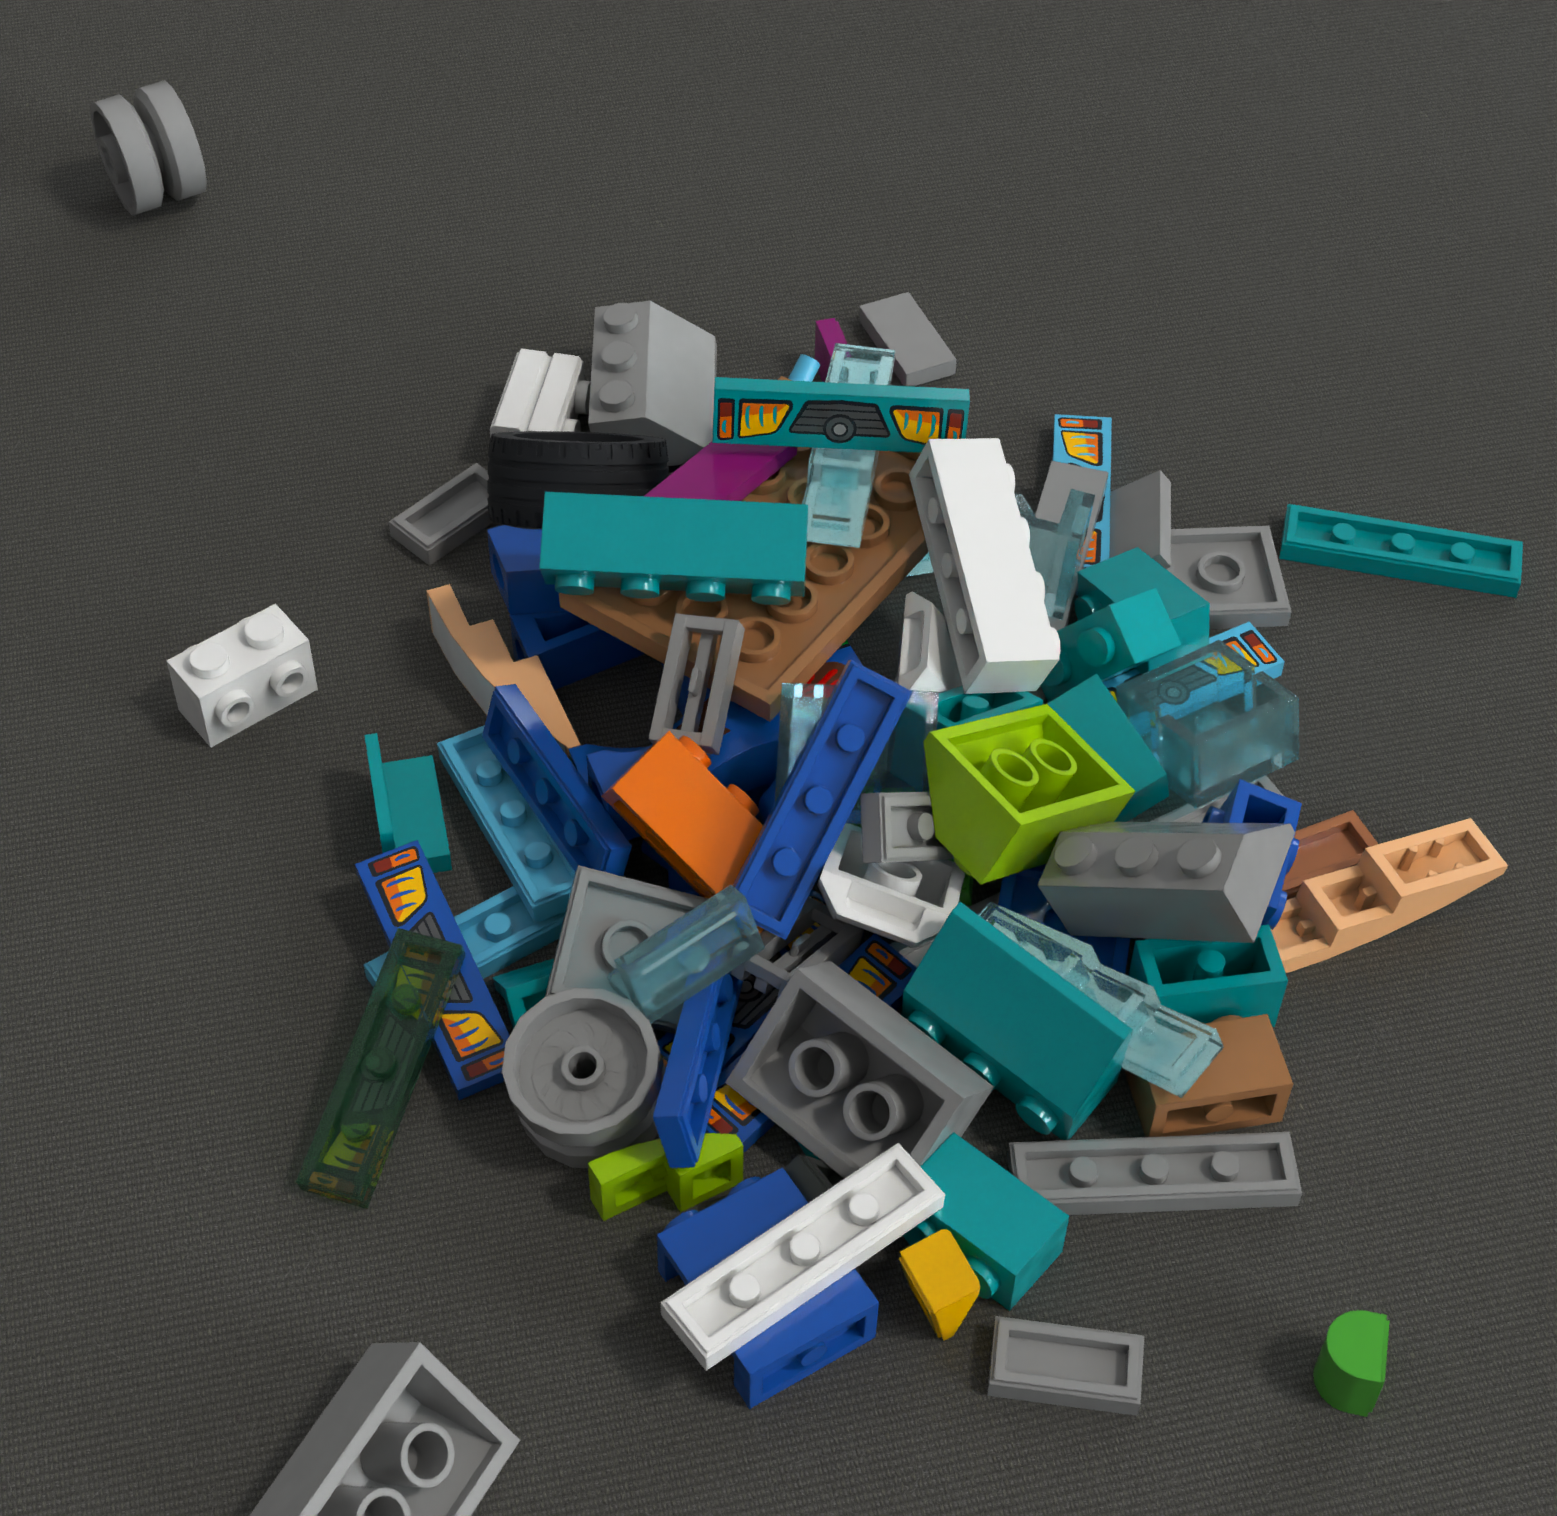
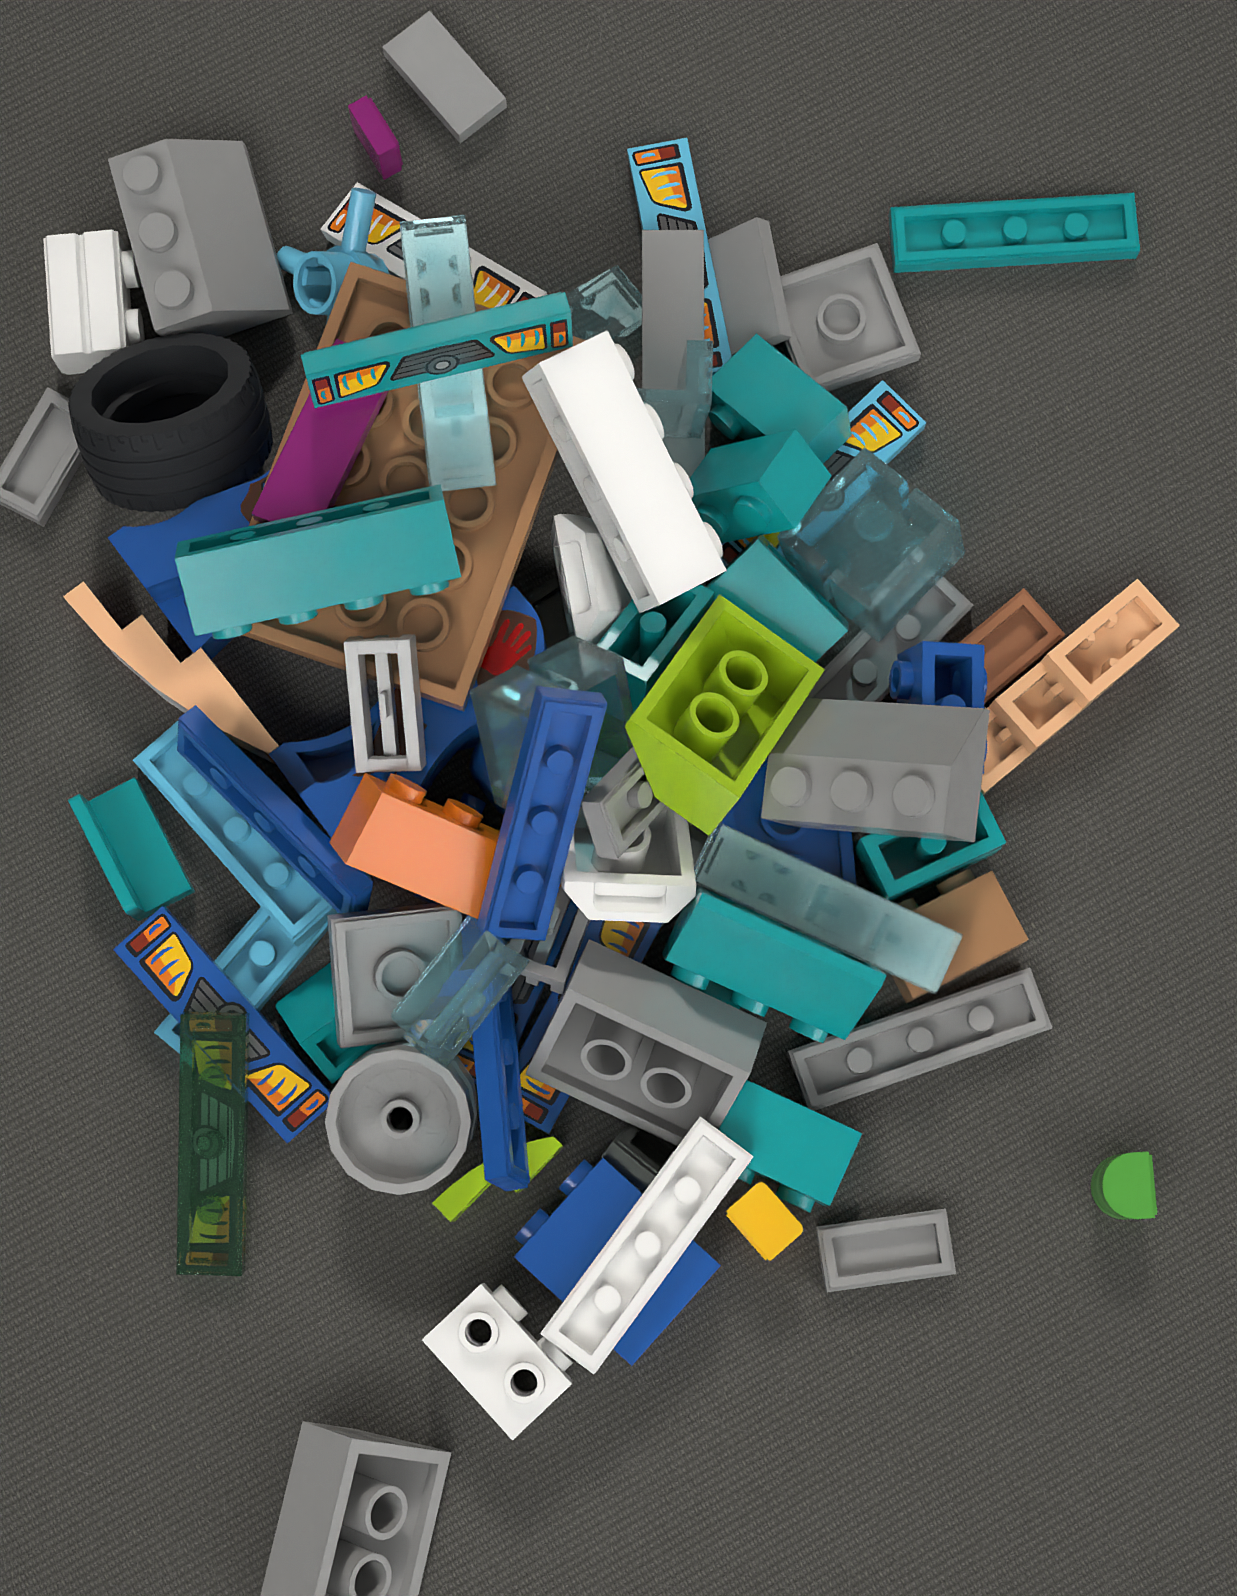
camera: 15 degrees left, 30 degrees up
(608, 1340) = (490, 1366): none -> white brick

